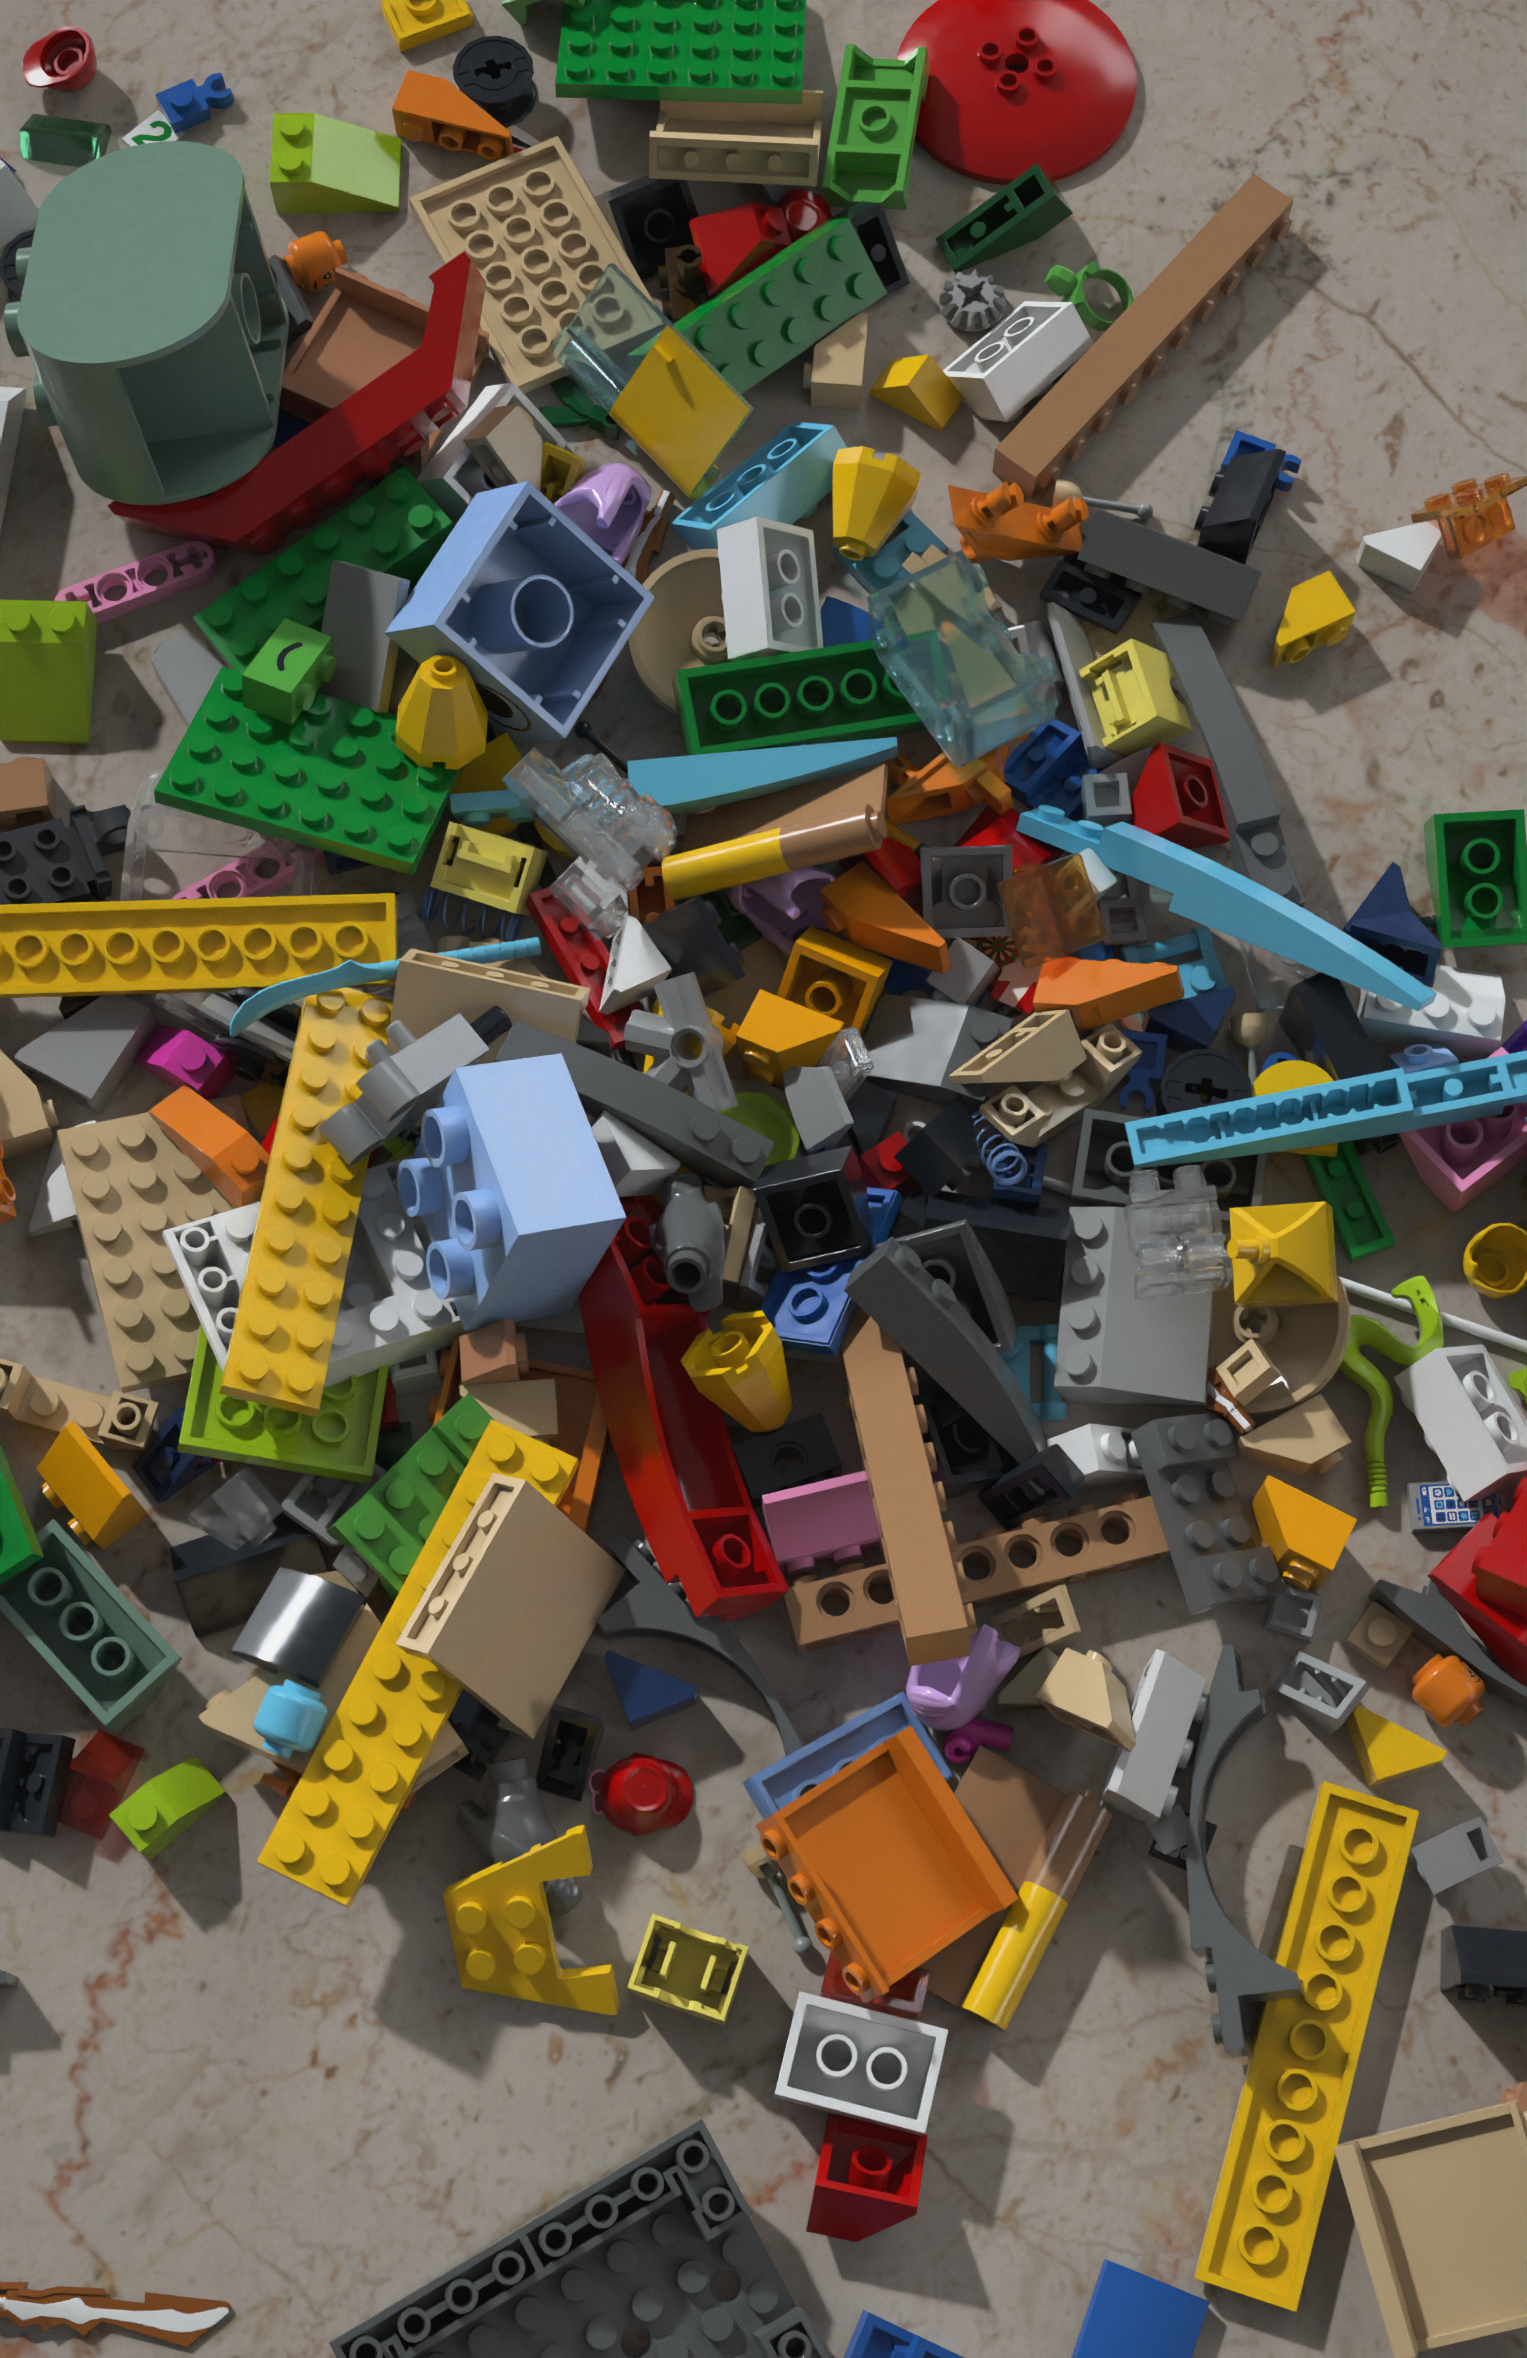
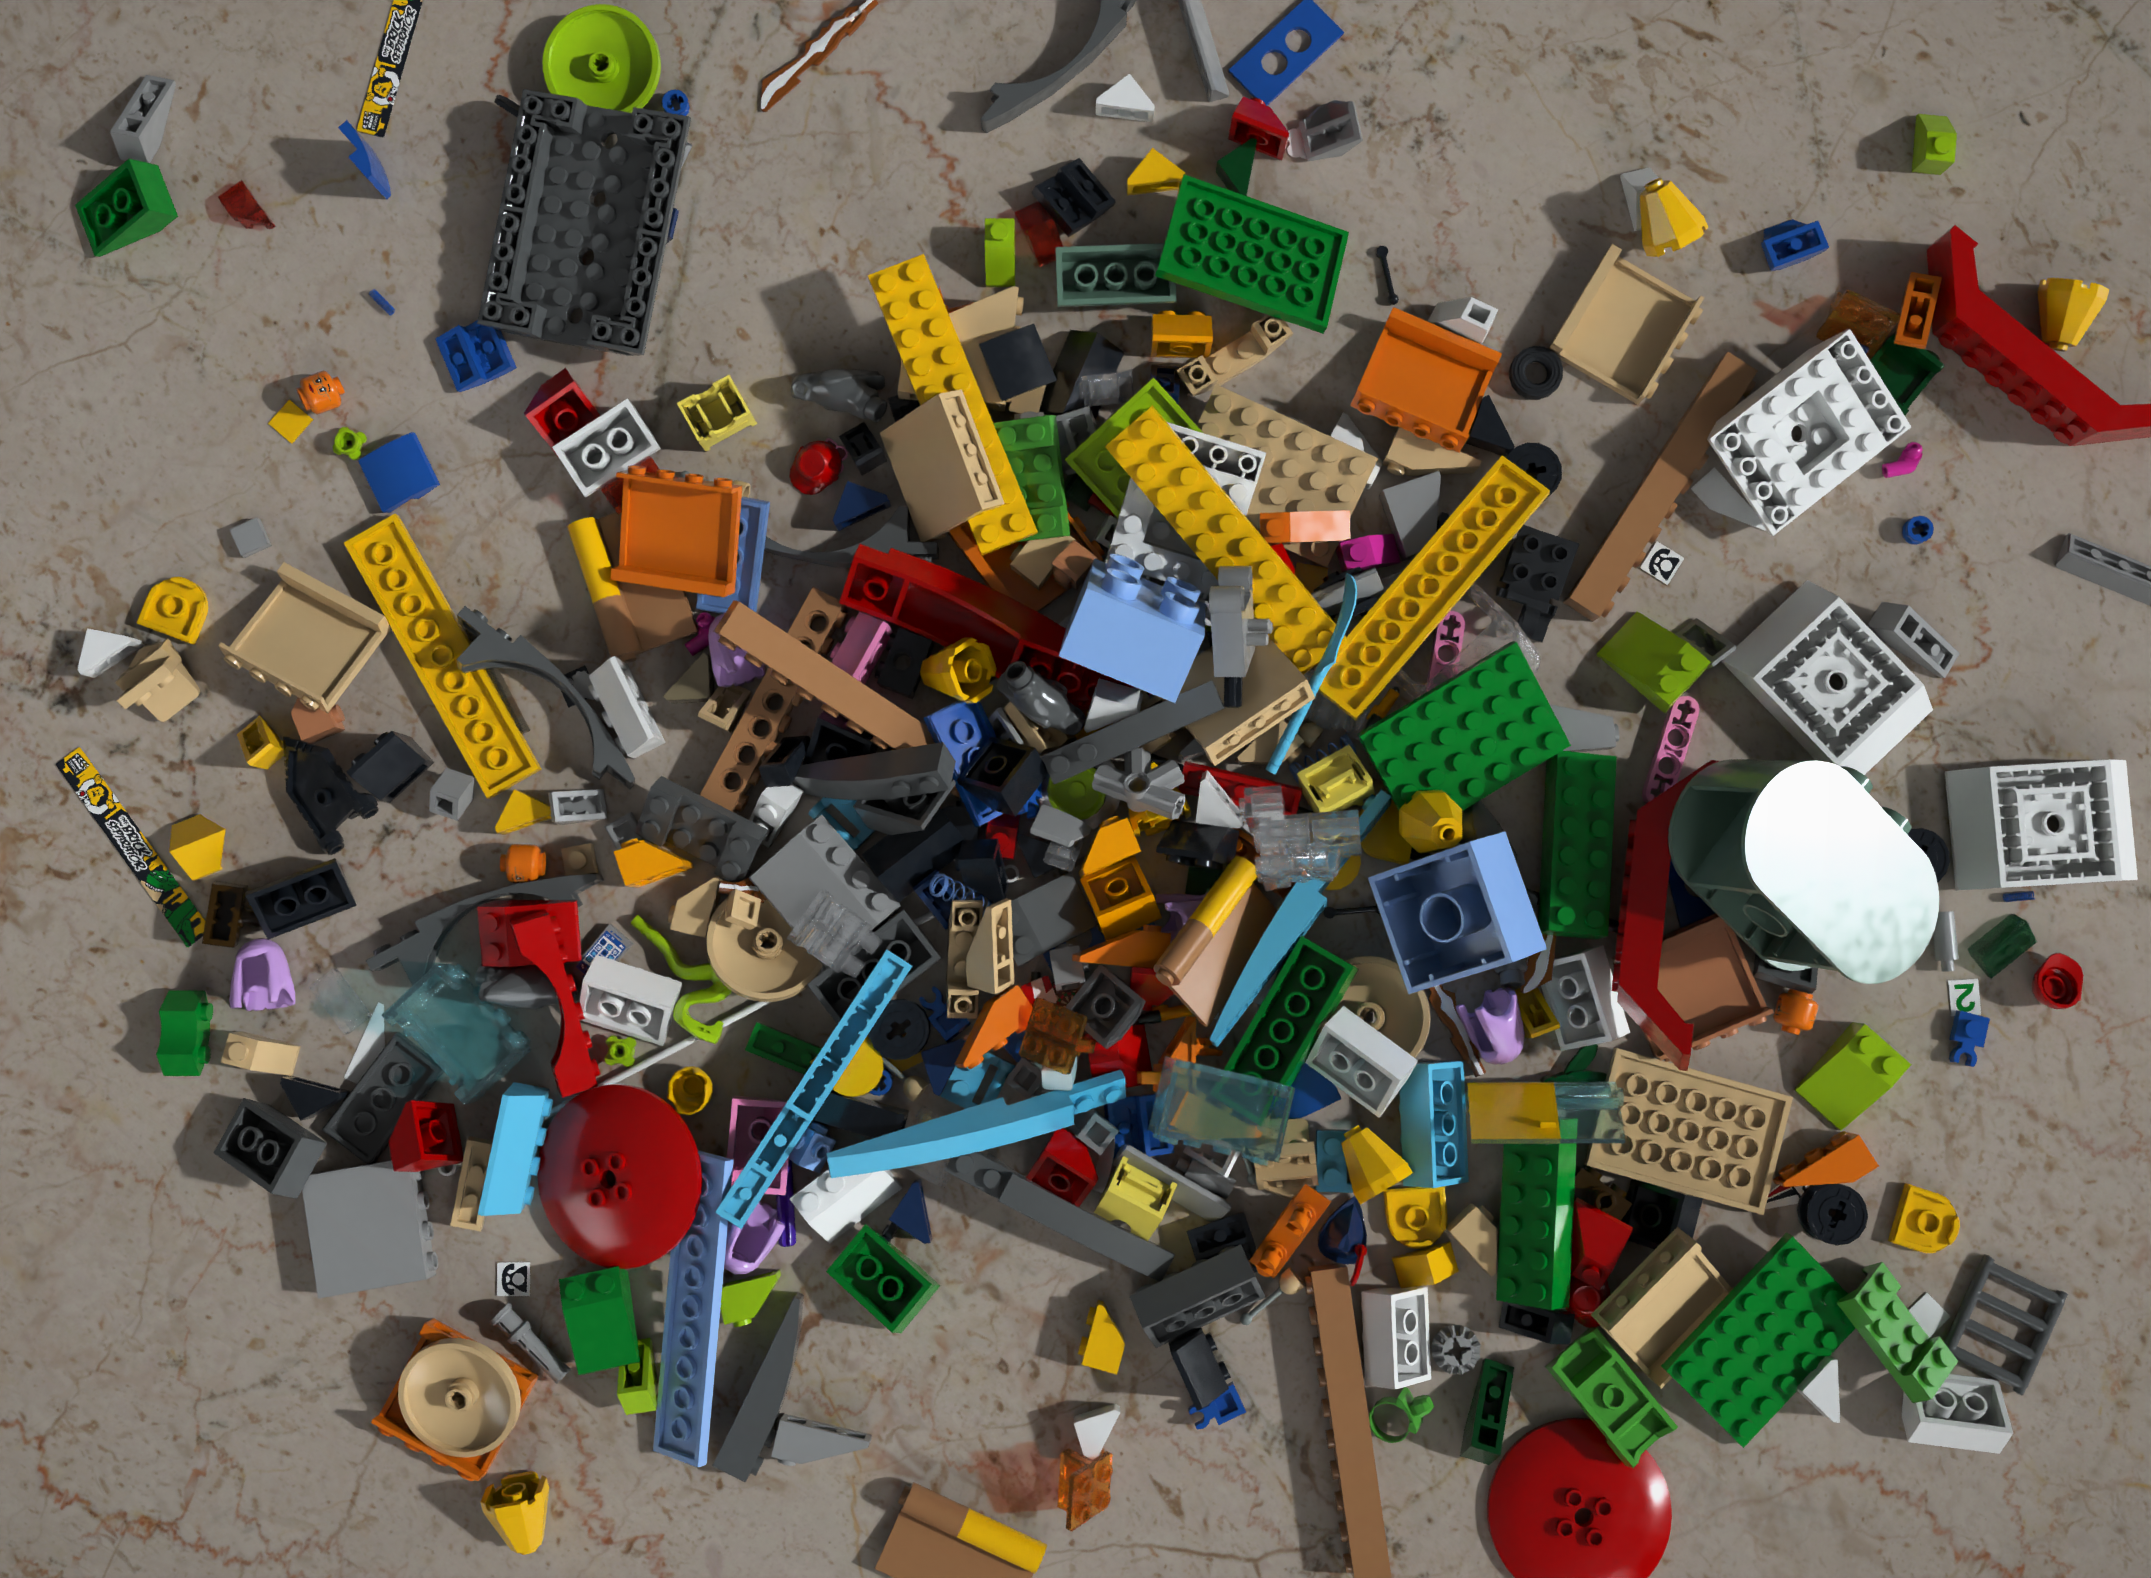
camera: 135 degrees right, 15 degrees up
(288, 672) = (1530, 769): bright green brick -> none
(290, 1718) = (974, 320): medium azure head -> none
(357, 616) = (1528, 826): light grey tile -> none
(507, 446) = (1571, 1003): tan slope -> none
(507, 1934) = (803, 348): yellow wing -> none
(881, 427) = (1416, 1215): none -> yellow tile
(967, 470) = (1345, 1236): none -> dark blue piece
(1089, 1698) = (660, 687): tan slope -> none
(1283, 1255) = (776, 974): yellow piece -> none
(1403, 942) = (882, 1195): dark blue slope -> none

